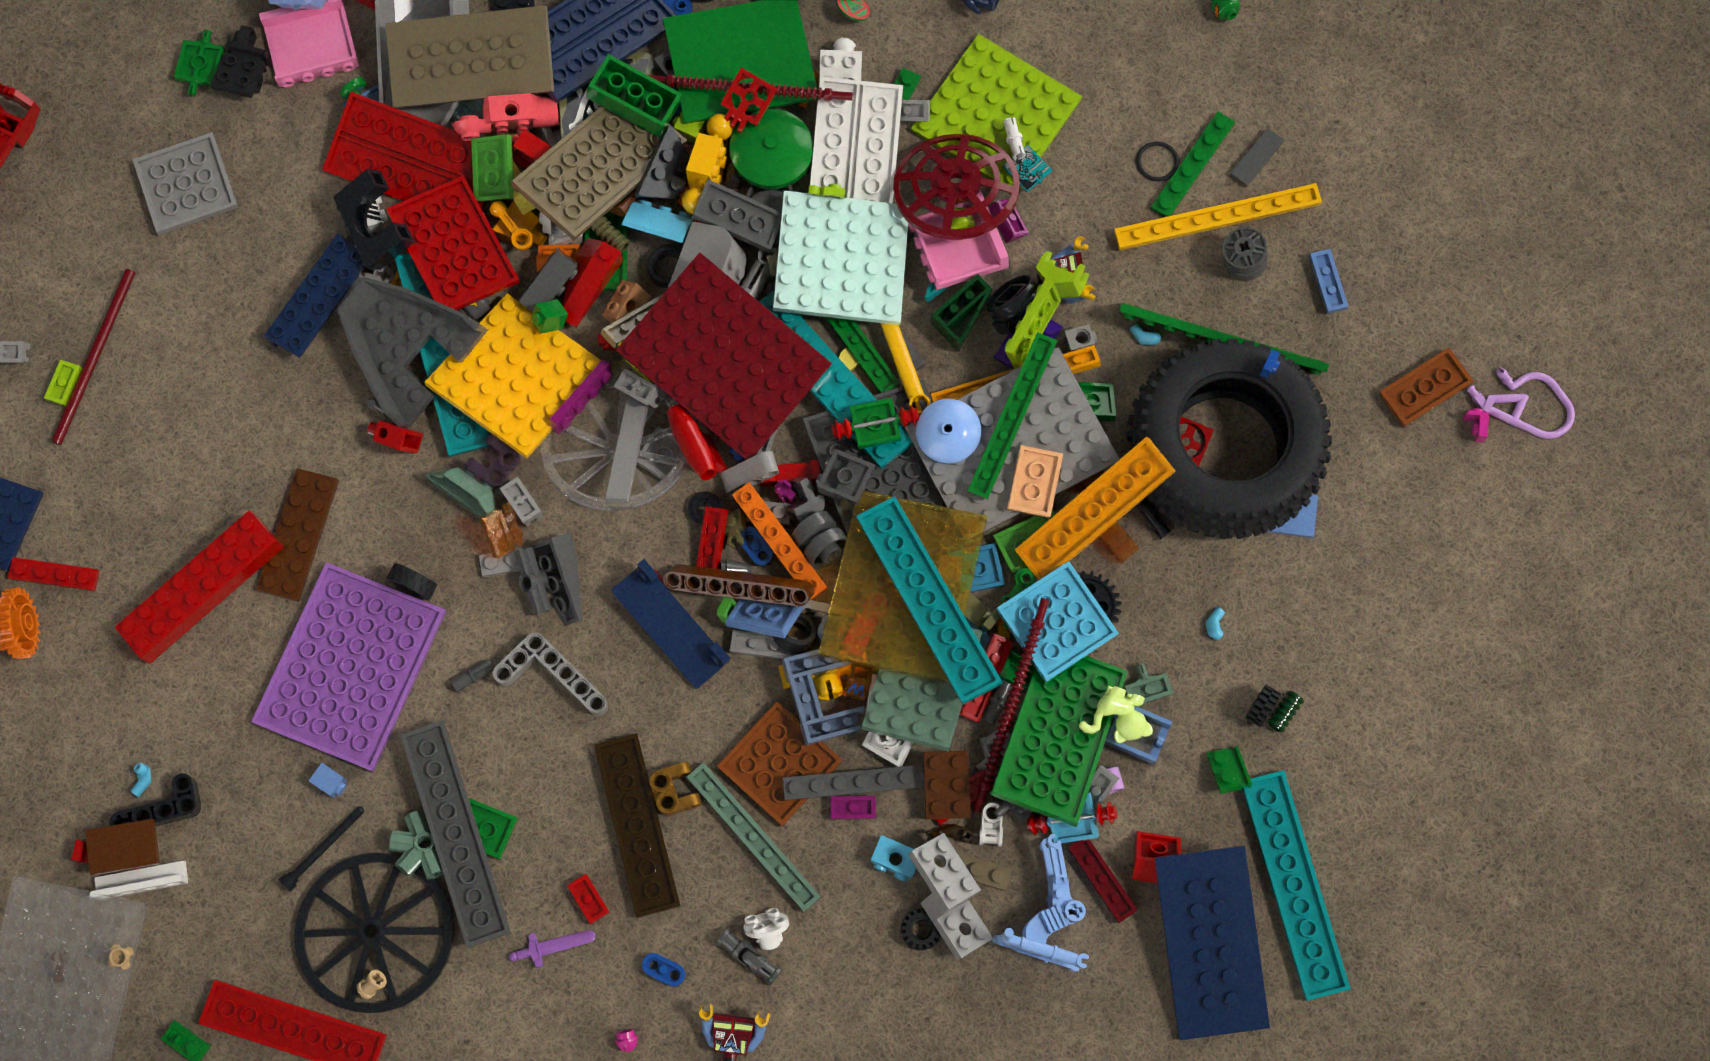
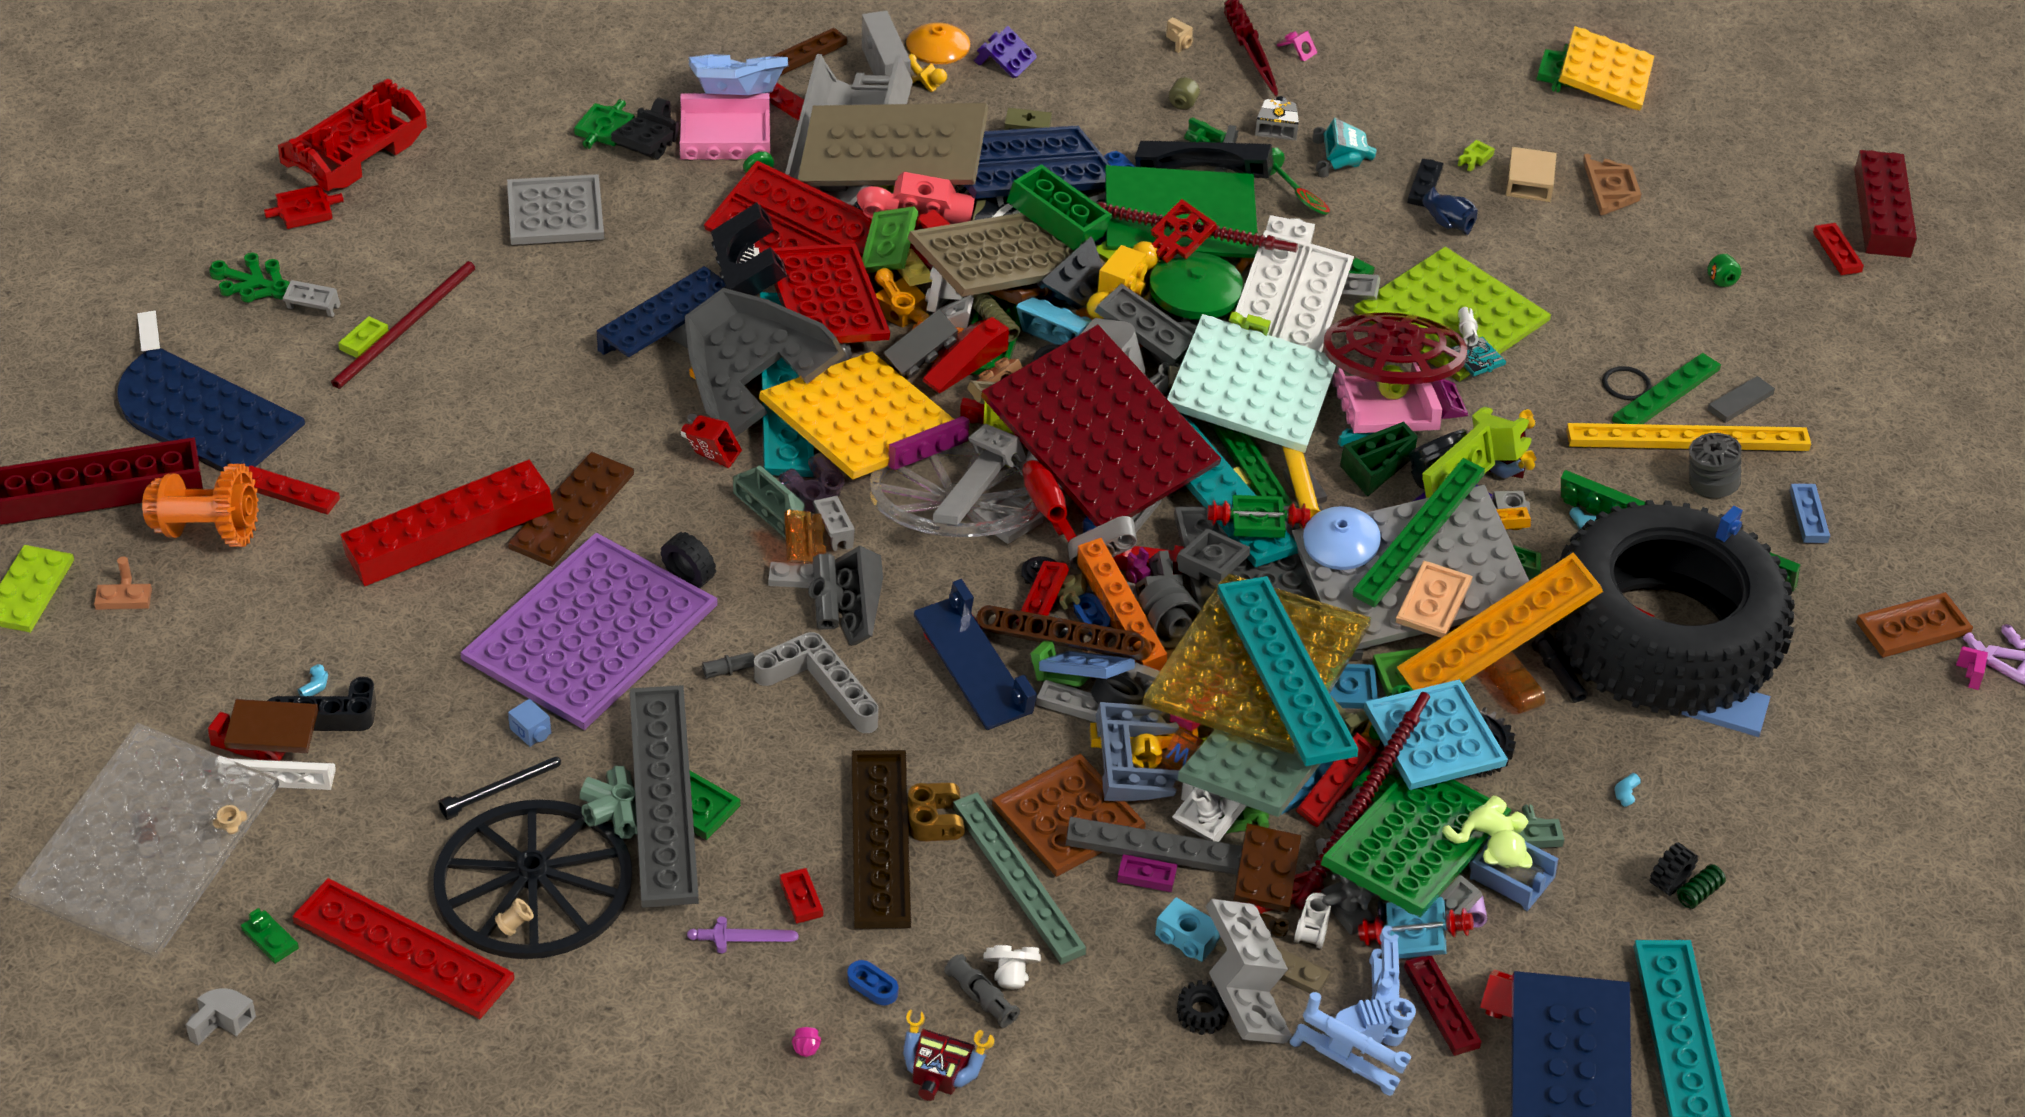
camera: 10 degrees right, 30 degrees down
(549, 316) = (913, 370): green brick -> none
(1229, 770) = (1620, 927): green plate -> none

